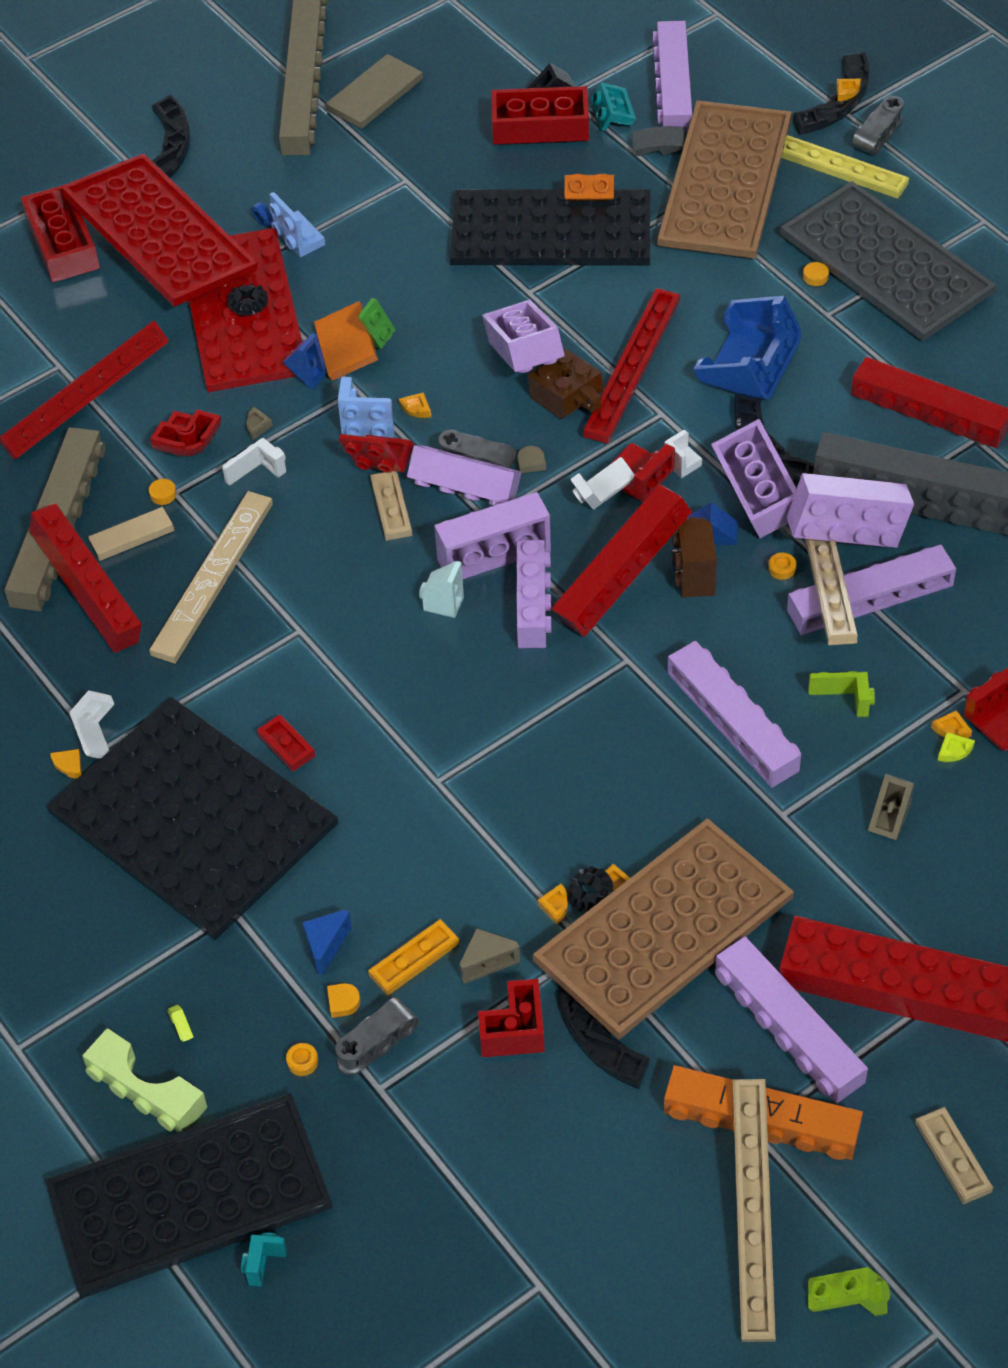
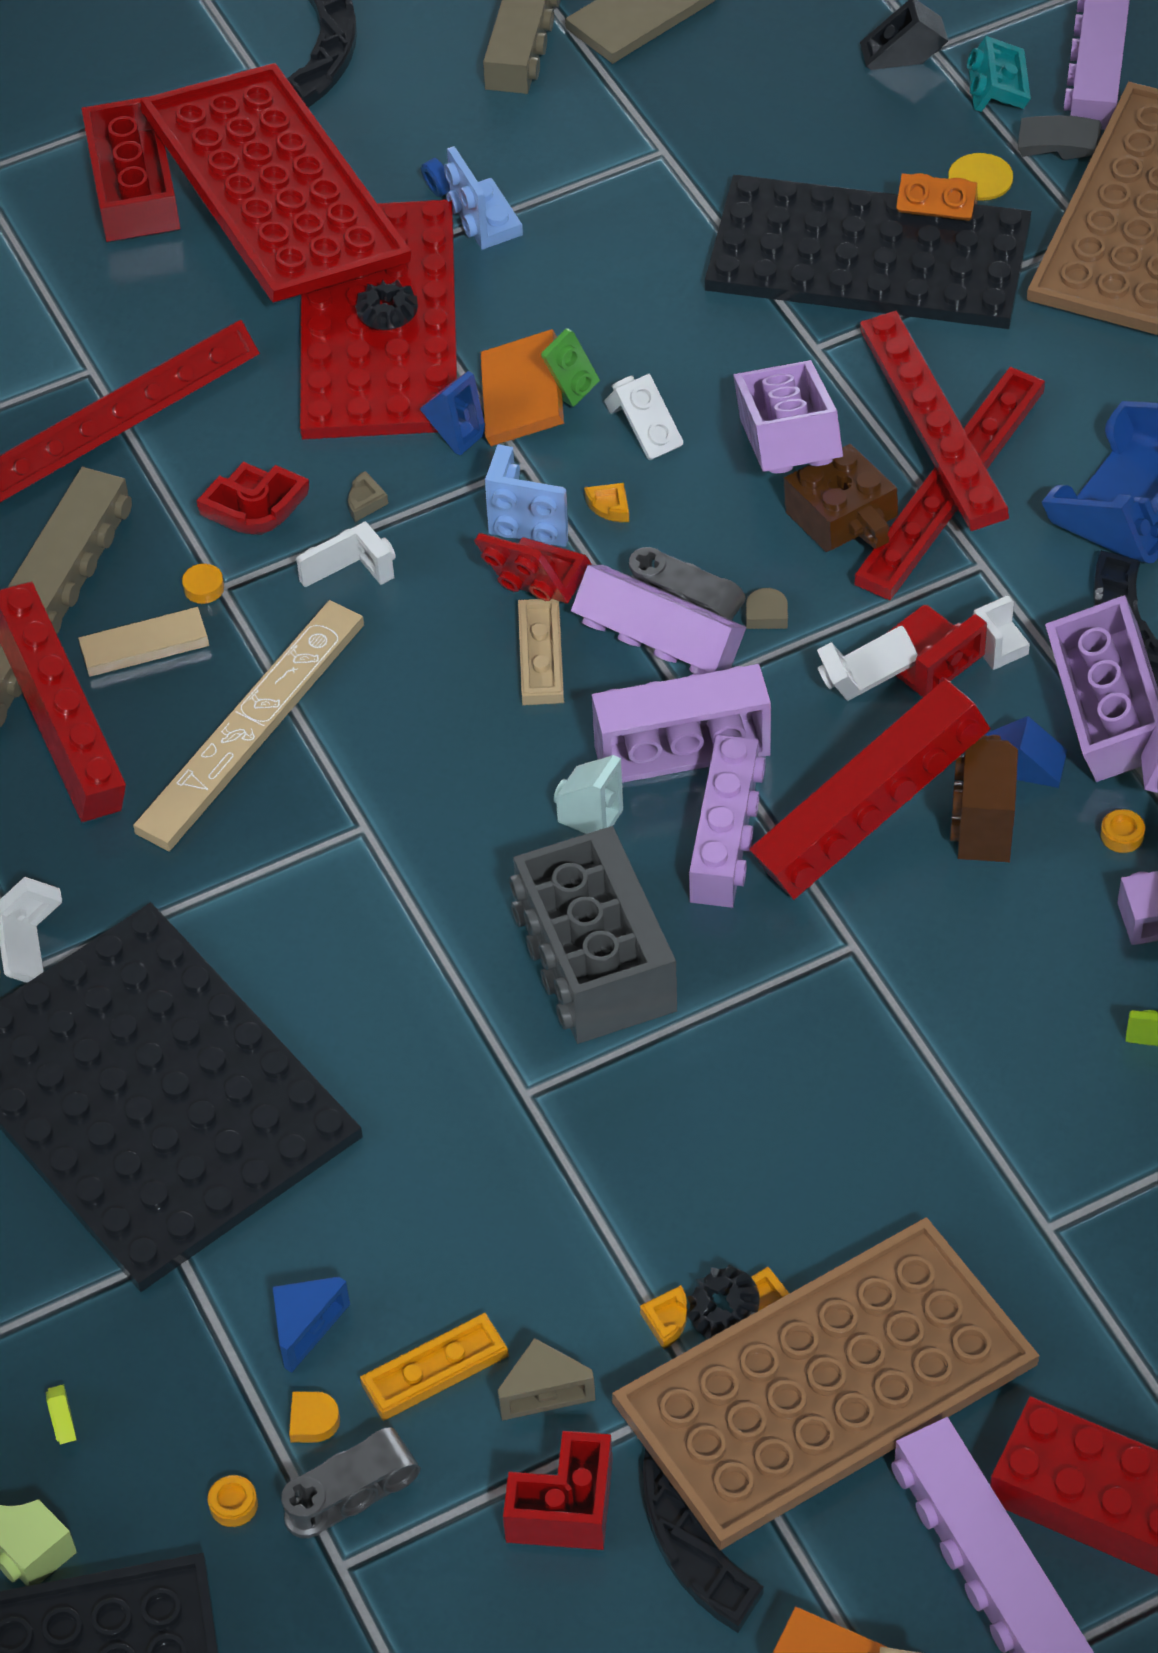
camera: 10 degrees right, 0 degrees up
(286, 743) = (307, 1000): red plate -> none
(429, 346) = (645, 414): none -> white bracket
(463, 675) = (593, 935): none -> dark grey brick
(540, 115) = (883, 75): red brick -> none
(615, 328) = (934, 421): none -> red plate
(616, 166) = (989, 171): none -> yellow piece
(734, 714) = (1002, 1056): lavender brick -> none

